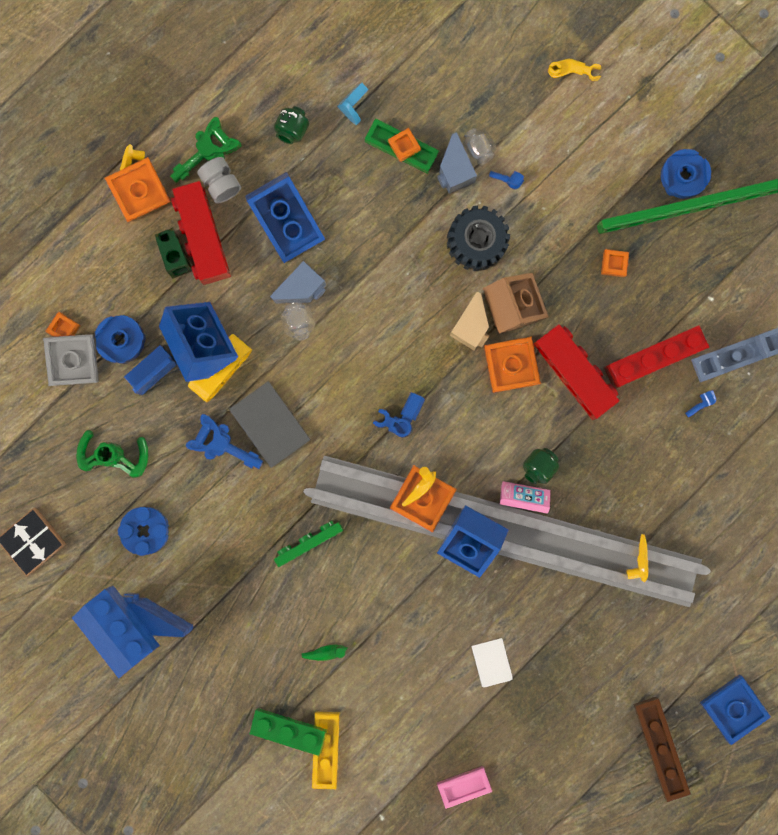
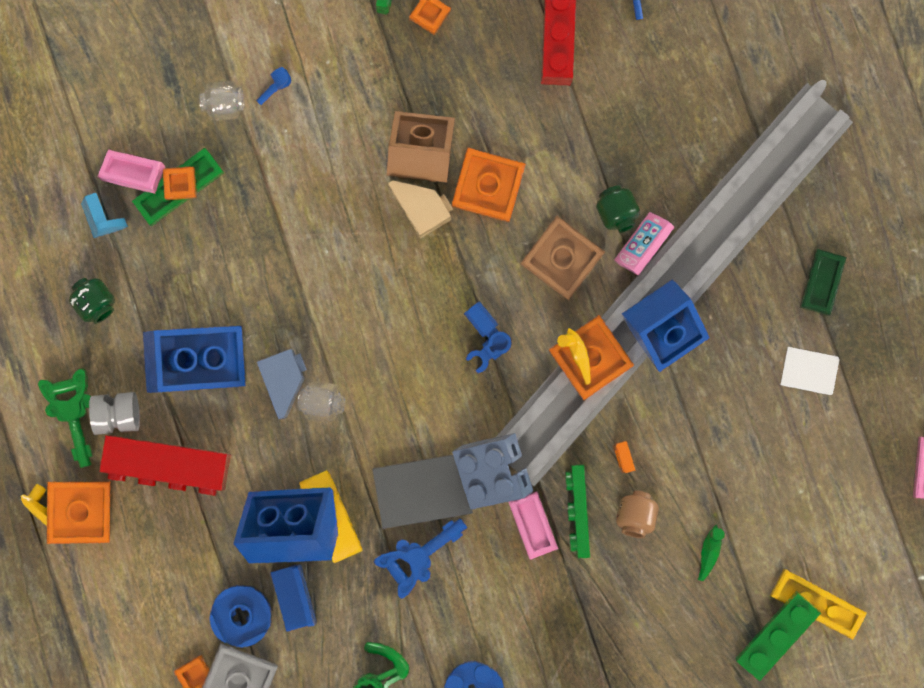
camera: 70 degrees left, 0 degrees up
(172, 253) = (171, 507): dark green leg -> none
(283, 515) = (533, 525): none -> bright pink tile
(304, 461) = (487, 474): none -> sand blue piece
(326, 587) = (637, 514): none -> medium nougat head
(363, 557) = (624, 457): none -> orange tile
(396, 107) = (131, 171): none -> bright pink tile
(456, 167) = (233, 137): sand blue slope -> none
(478, 238) = (327, 152): black wheel -> none
(485, 443) = (562, 258): none -> medium nougat tile
(561, 641) = (823, 282): none -> dark green tile
(576, 371) = (532, 117): red brick -> none
(642, 560) = (788, 154): yellow bar -> none

